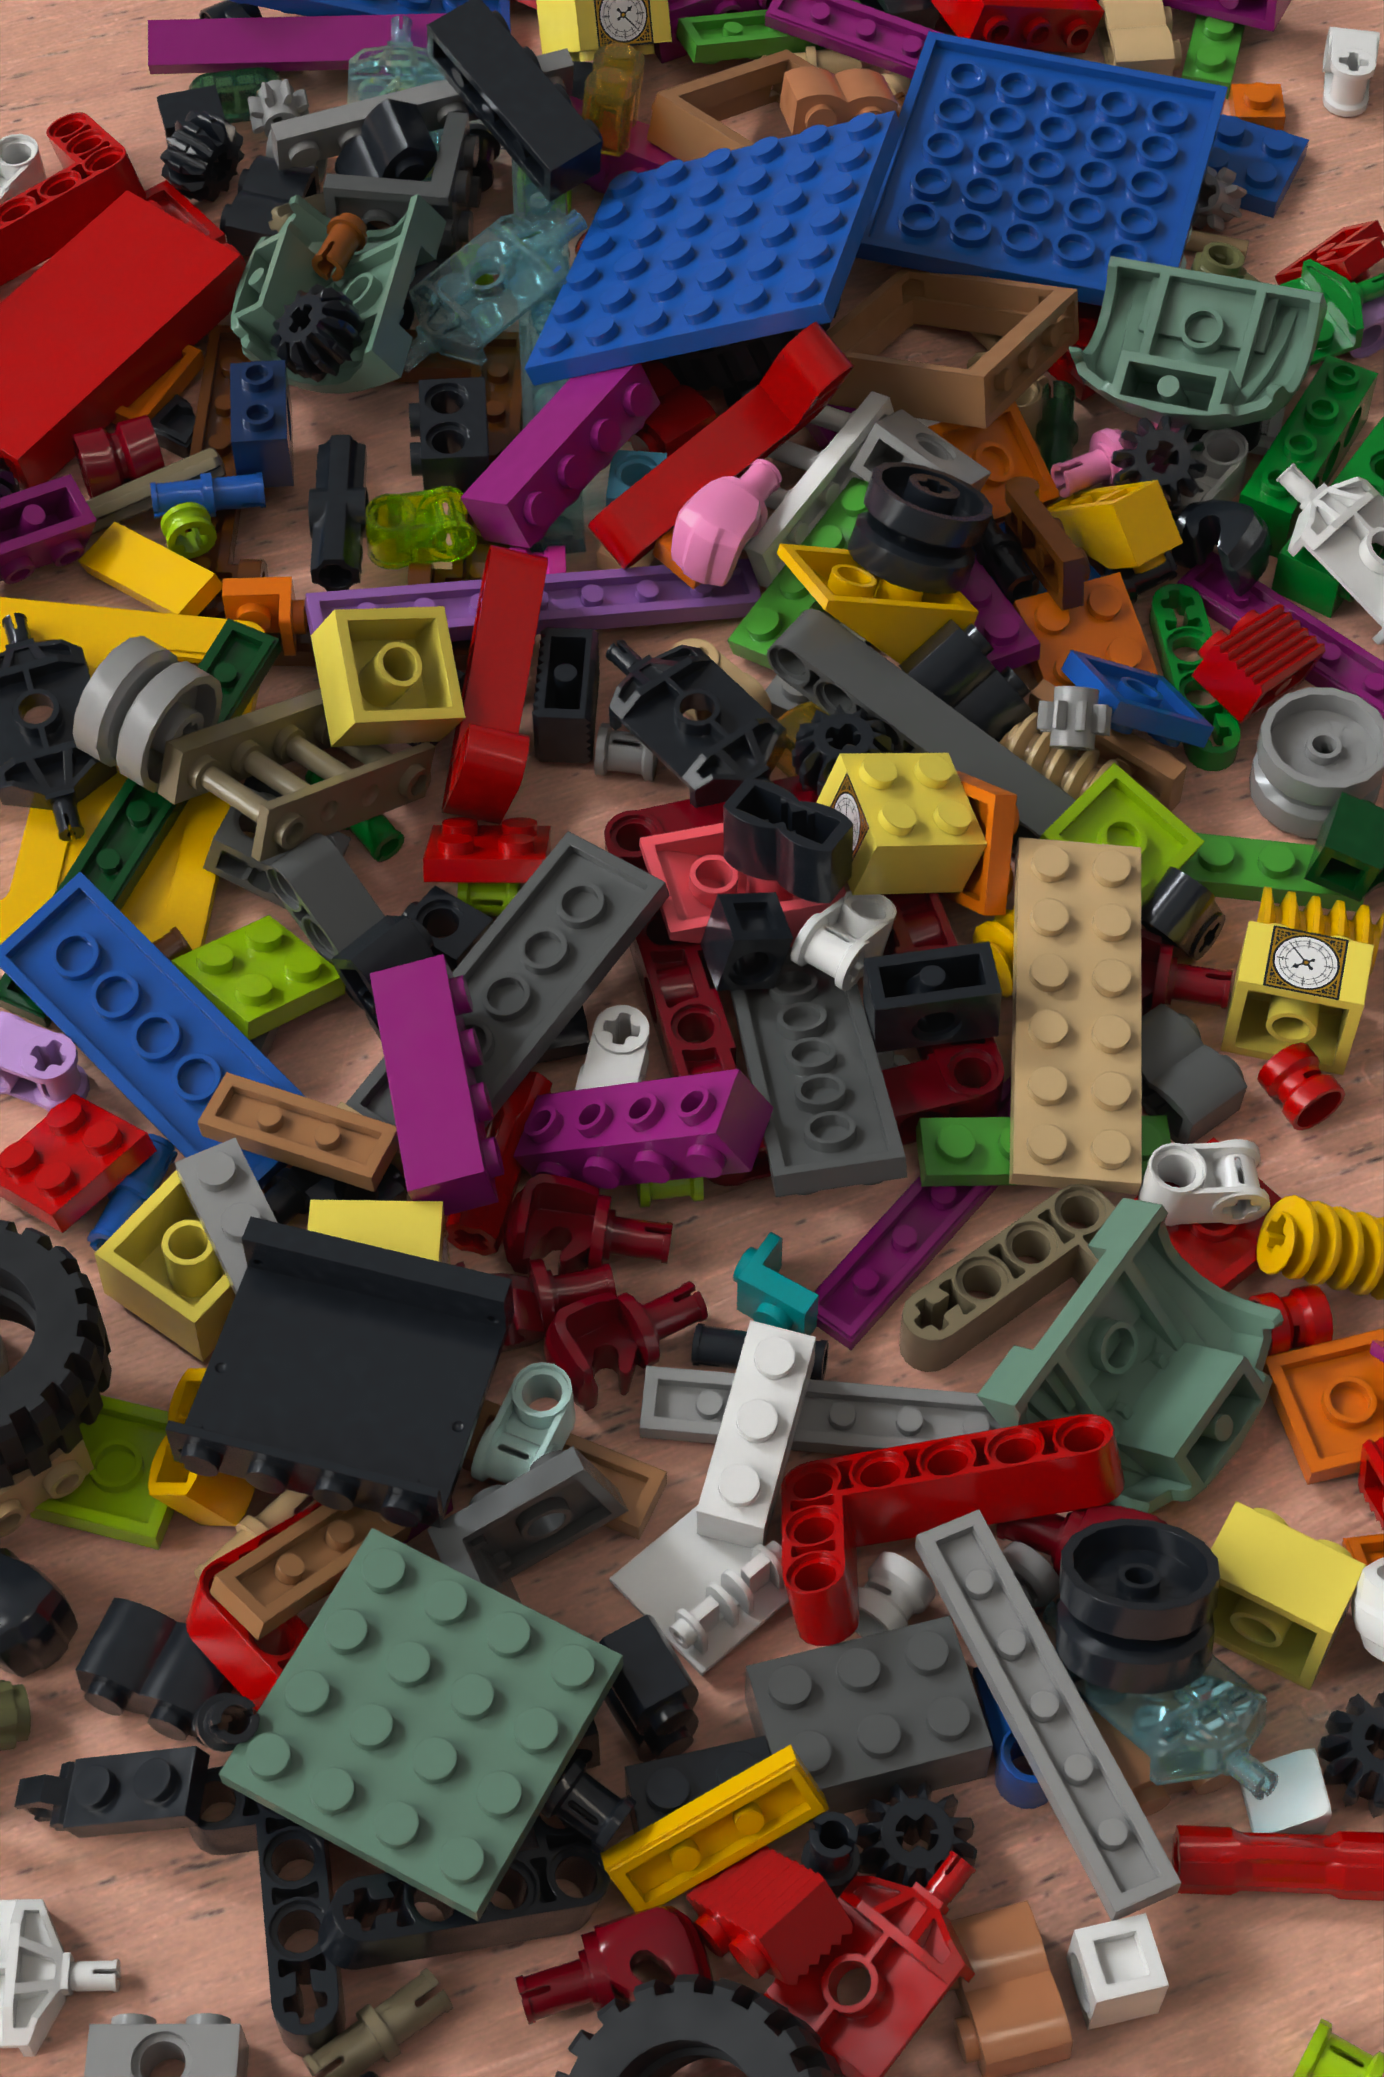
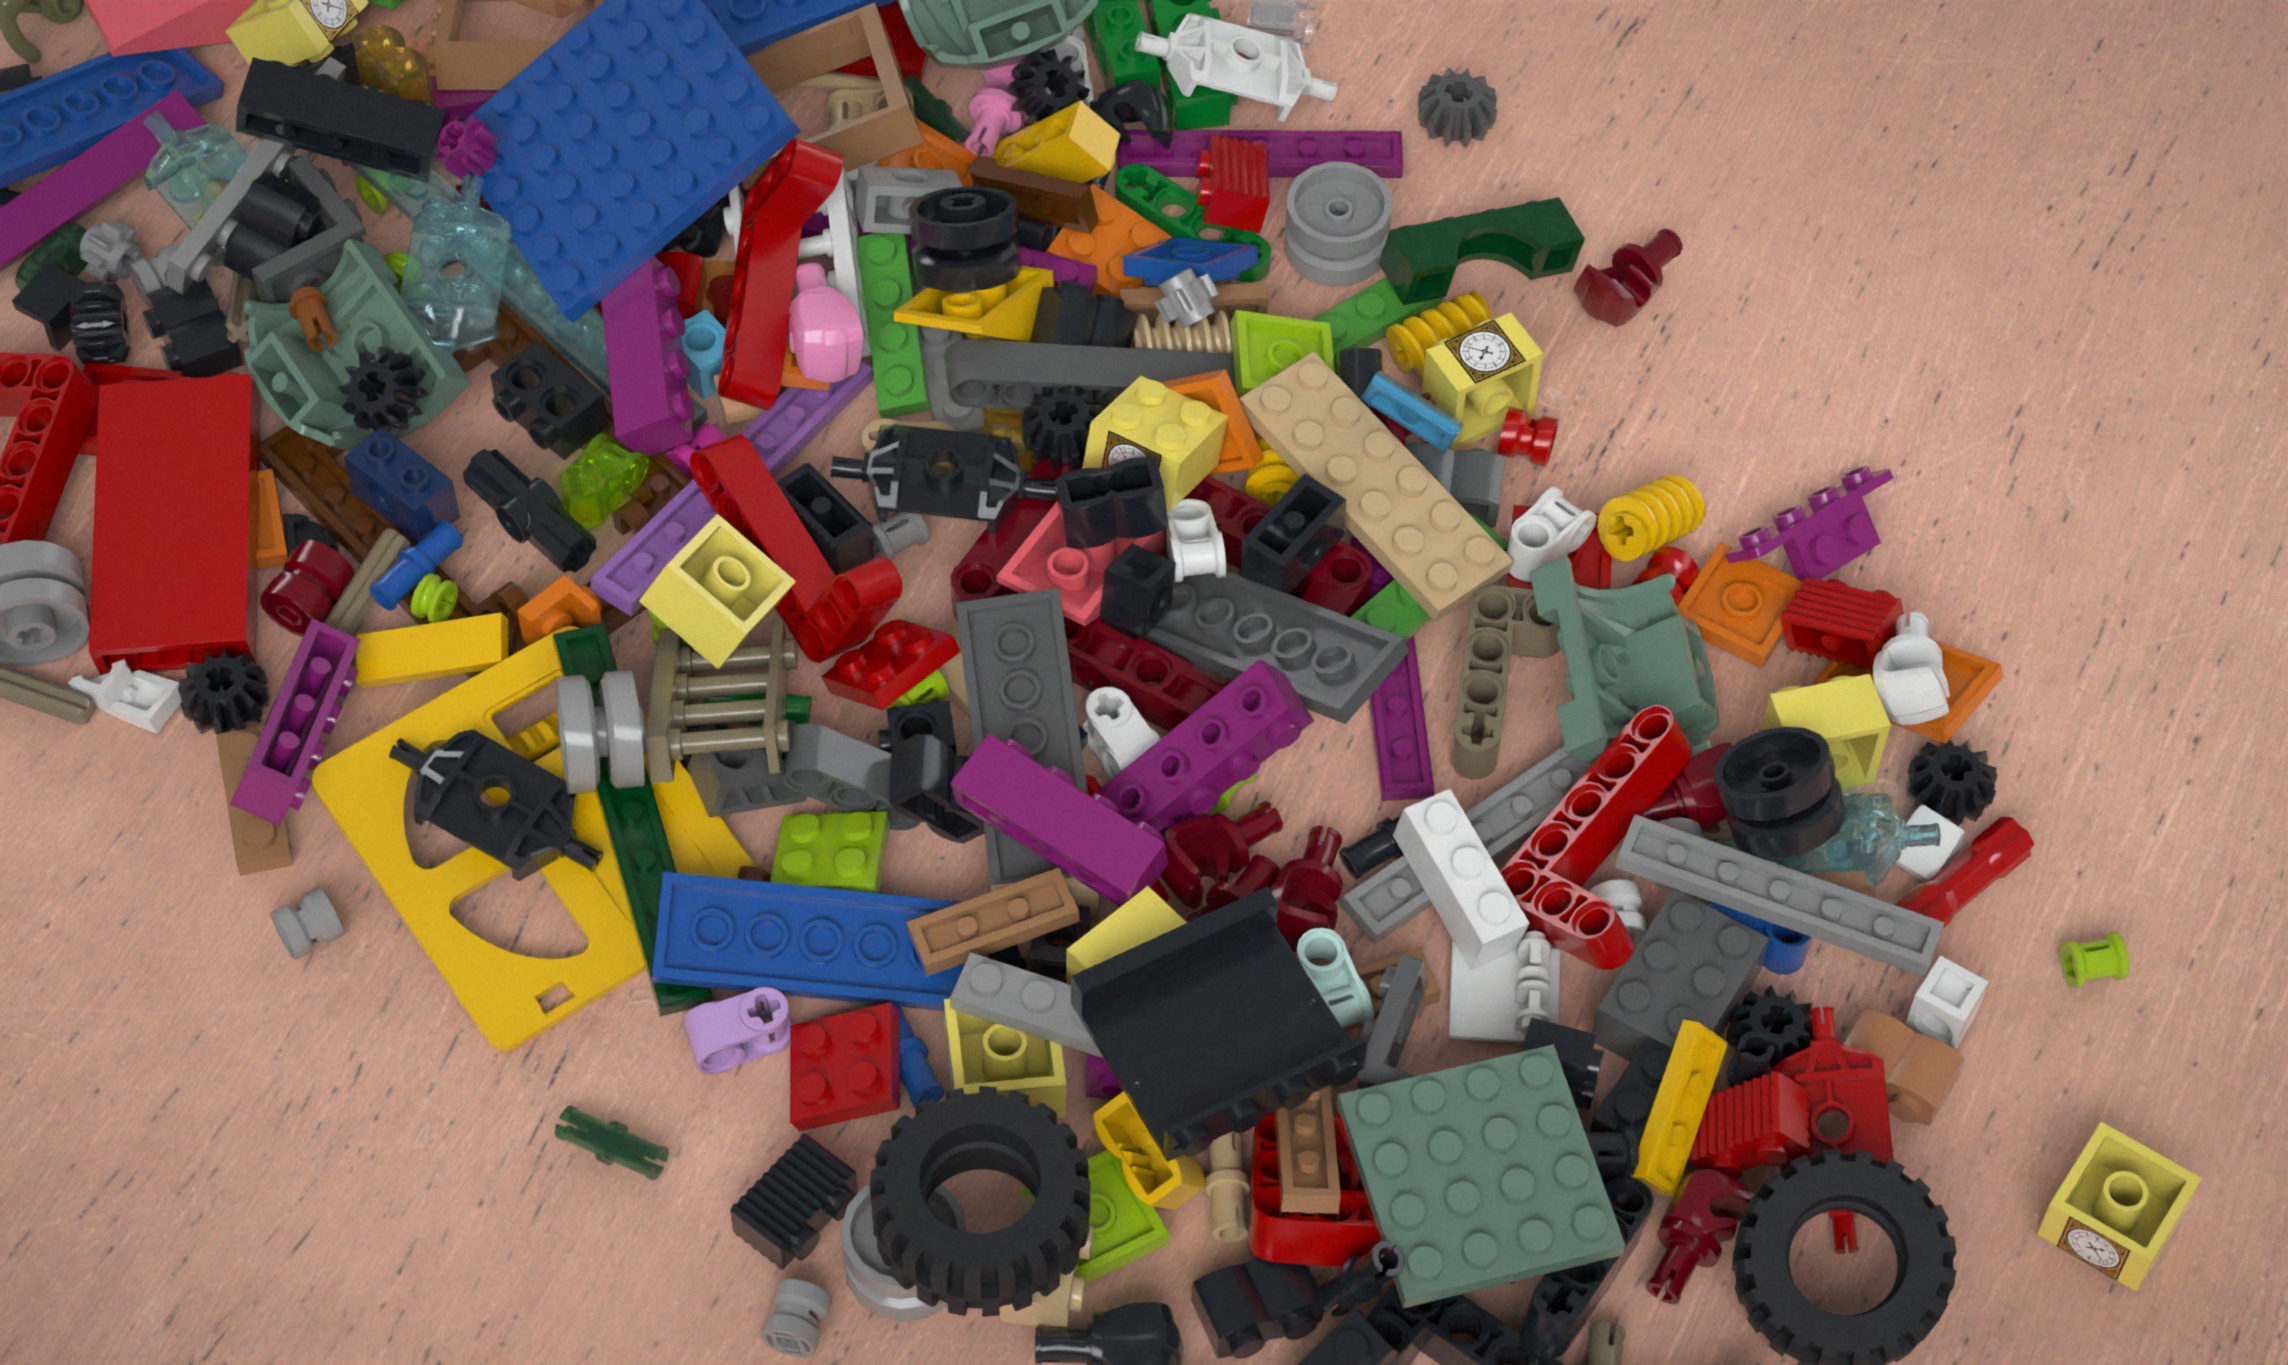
camera: 45 degrees left, 0 degrees up
(594, 185) = (467, 147): none -> magenta gear
(771, 1296) = (1364, 799): teal bracket -> none
(1187, 968) = (1412, 411): none -> dark azure slope

